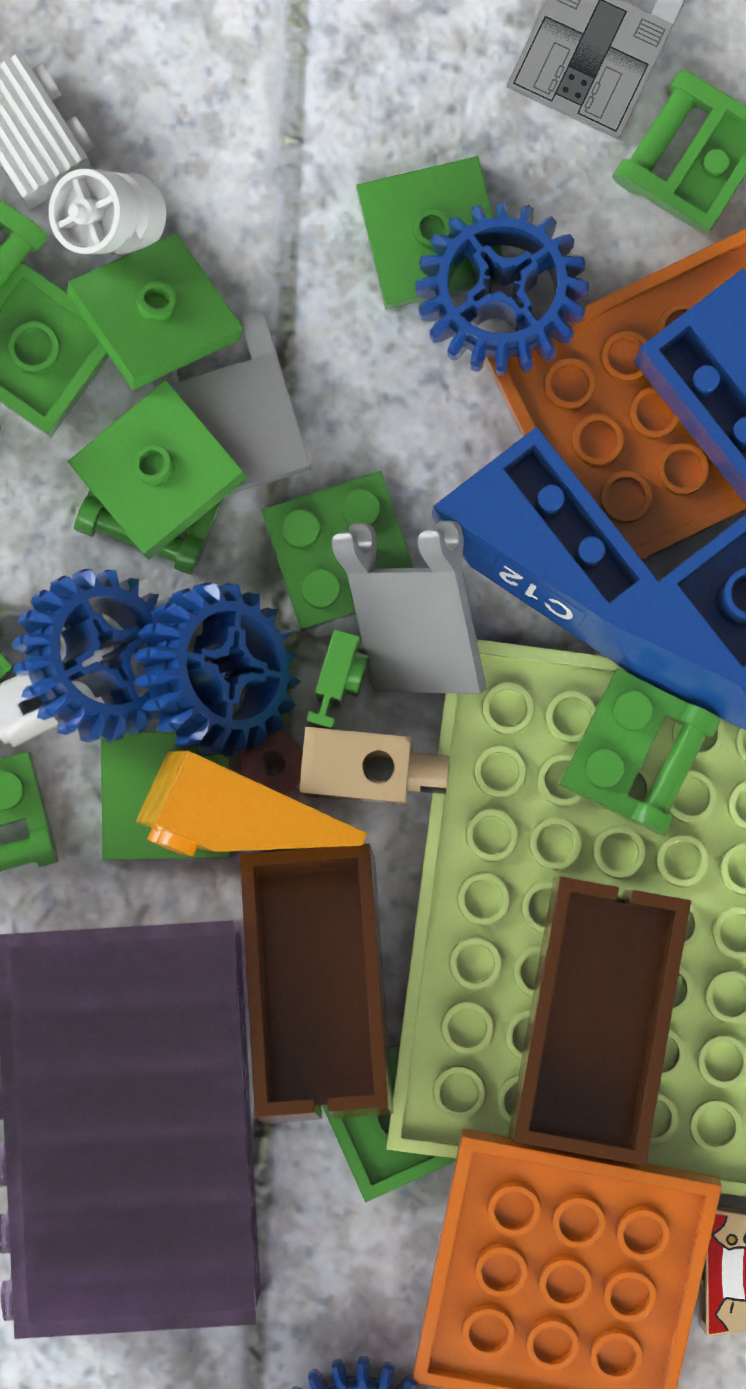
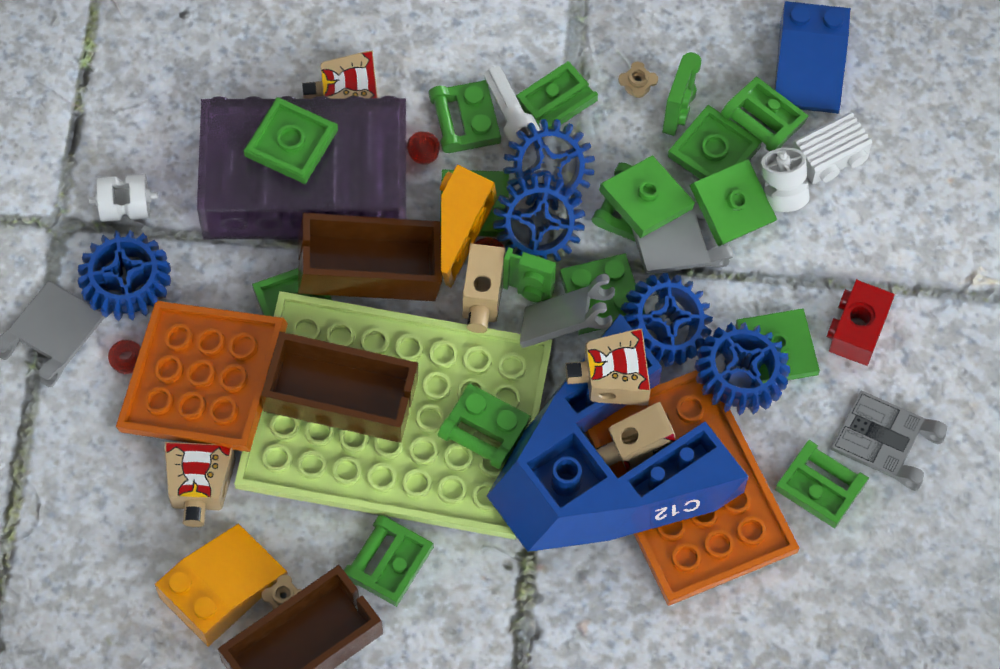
camera: 90 degrees right, 20 degrees down
(57, 898) = (423, 147): none -> clear red plate
(108, 1153) = (291, 140): none -> bright green plate
(361, 51) = (855, 340): none -> red brick
(448, 418) = (693, 316): none -> blue gear
(564, 510) = (614, 369): none -> torso
(648, 449) = (638, 437): none -> tan torso

